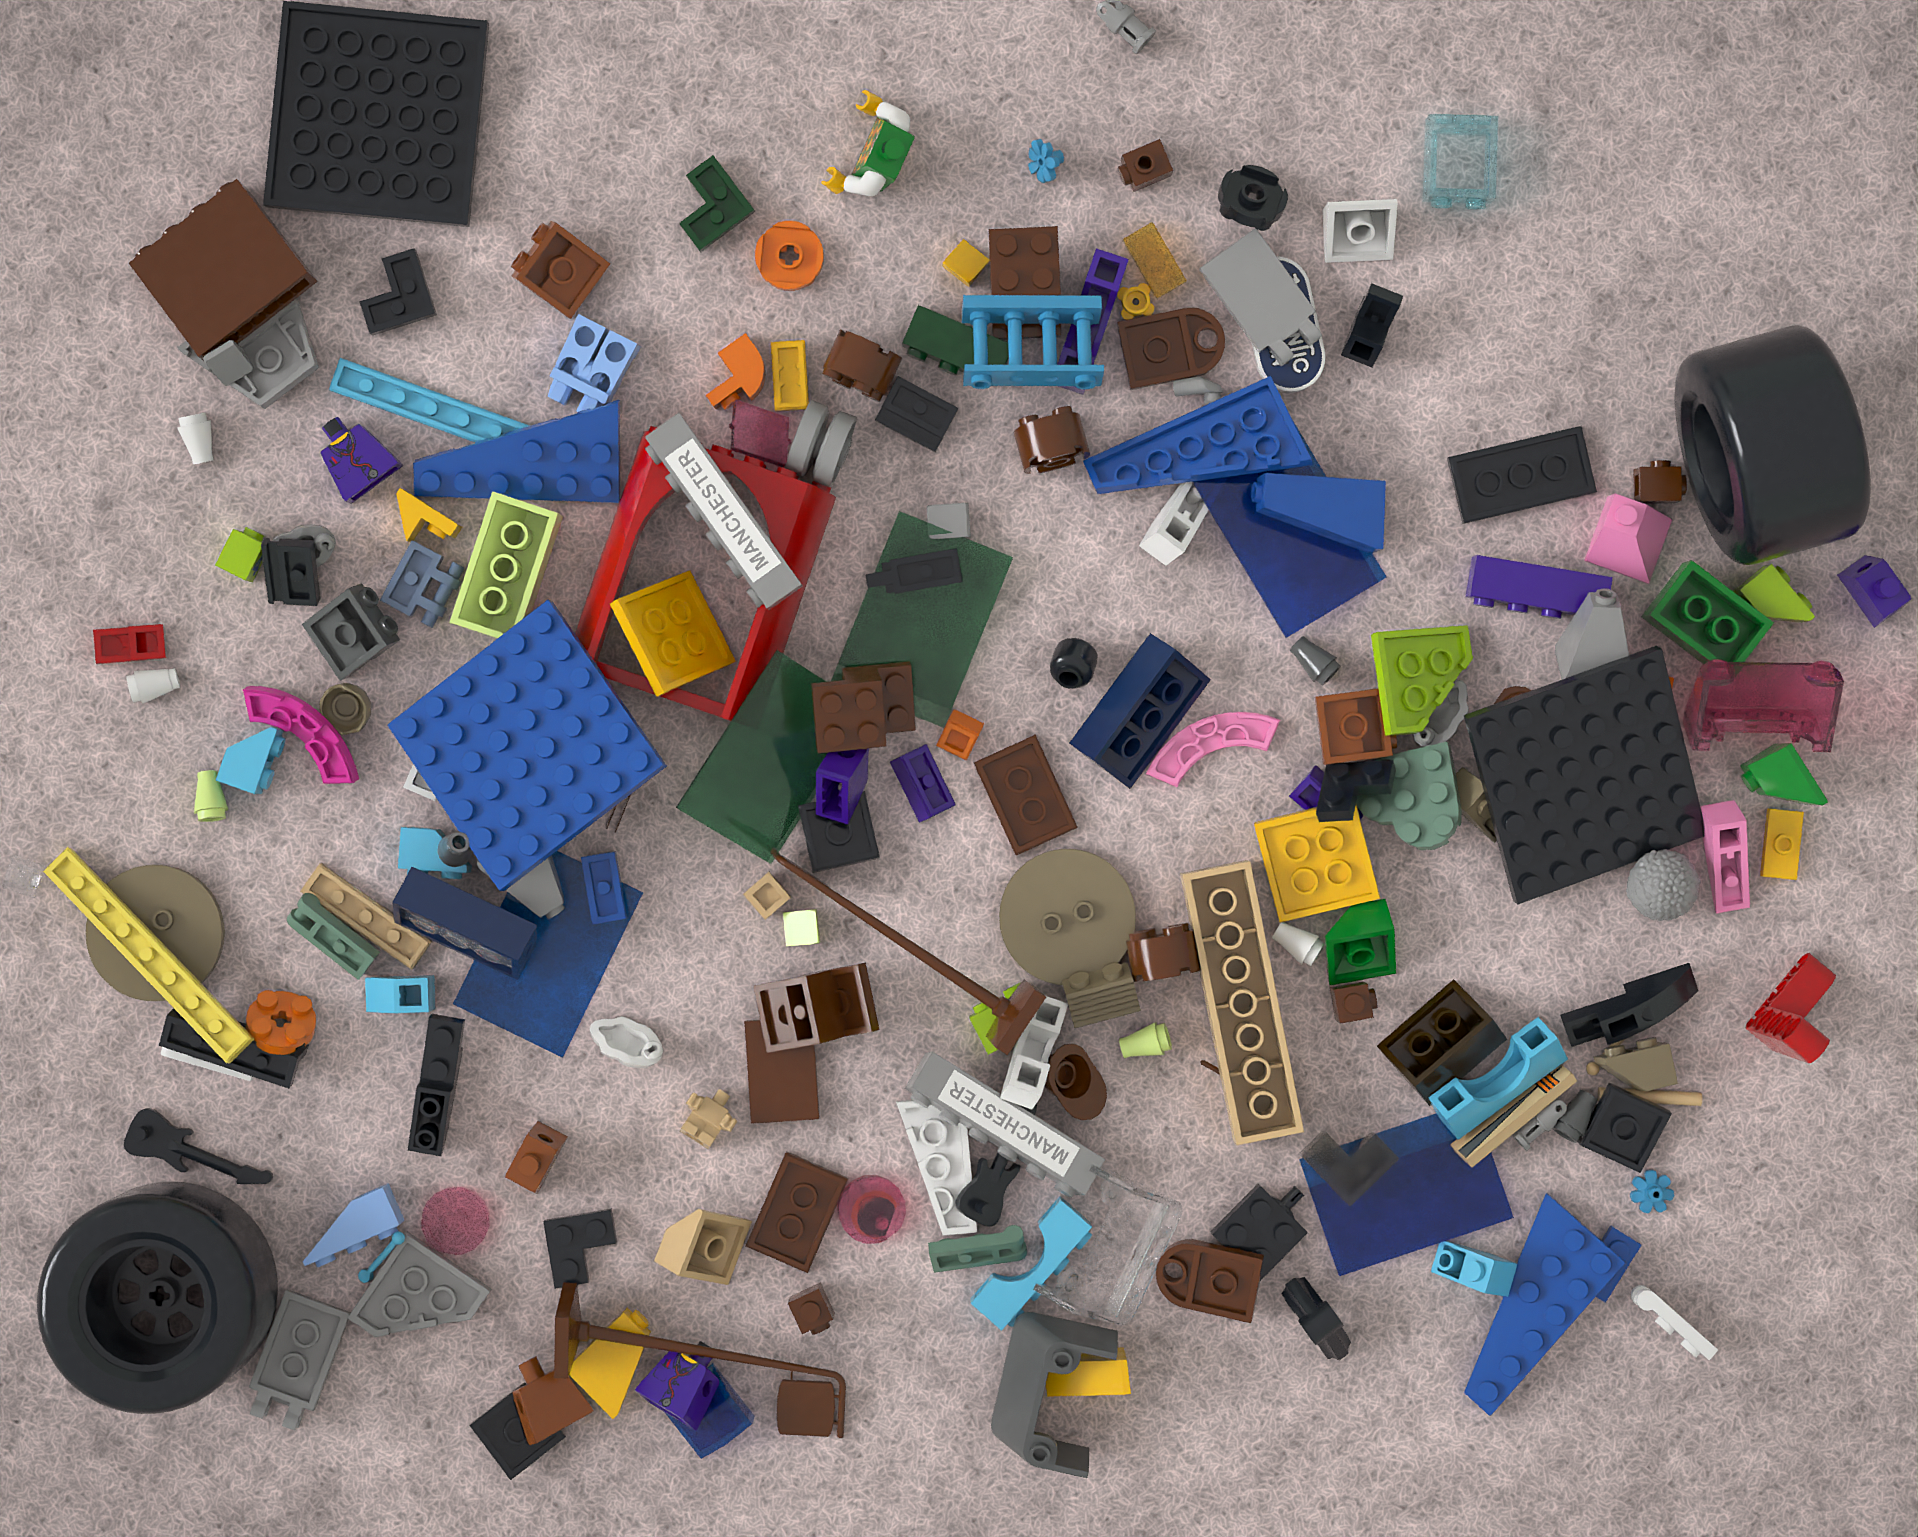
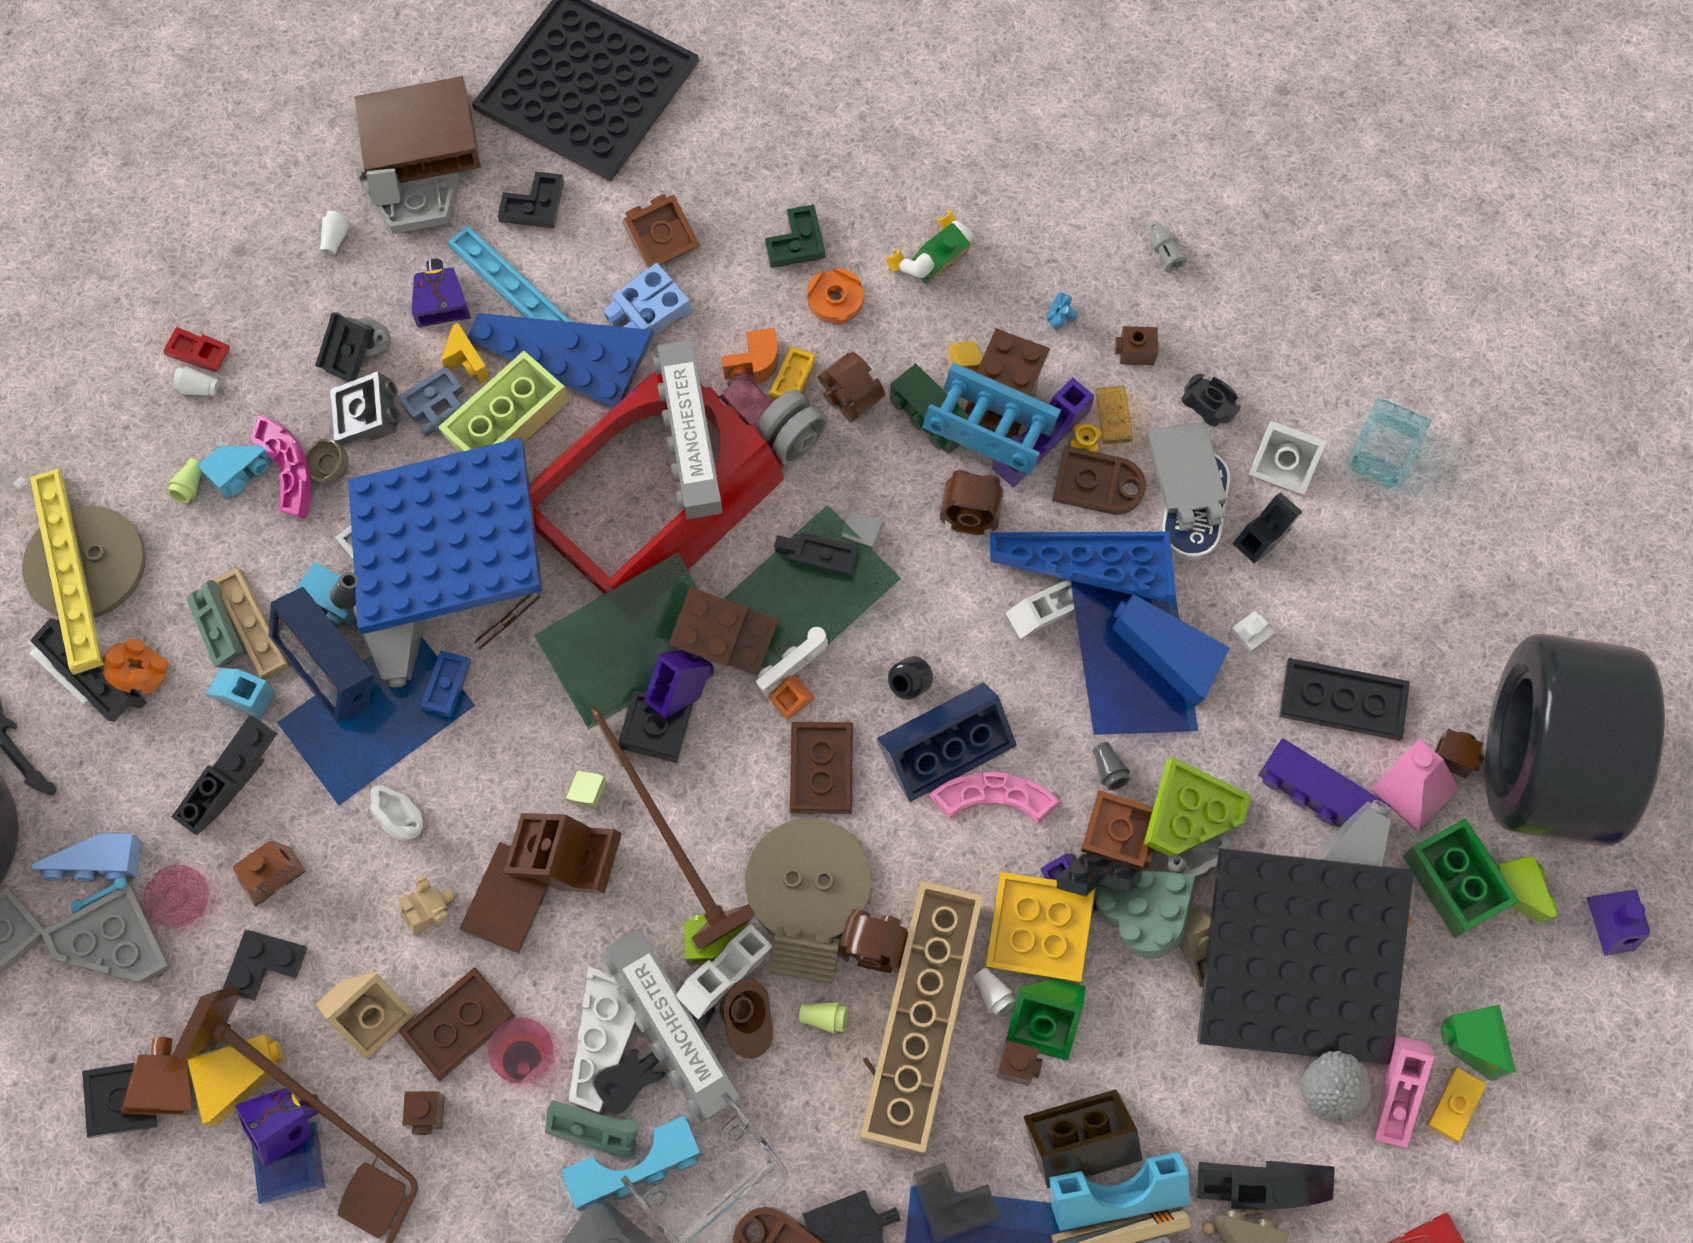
camera: 25 degrees right, 20 degrees down
(242, 554) = (313, 321): lime brick -> none
(672, 633) = (603, 510): yellow plate -> none
(767, 895) = (571, 749): tan plate -> none
(916, 414) = (876, 444): black plate -> none
(922, 783) = (742, 720): dark purple slope -> none
(945, 700) = (792, 661): none -> white plate
(1198, 385) = (1107, 517): light grey arm -> none
(1399, 444) = (1252, 631): none -> white tile
(1764, 699) = (1488, 961): clear pink windscreen -> none

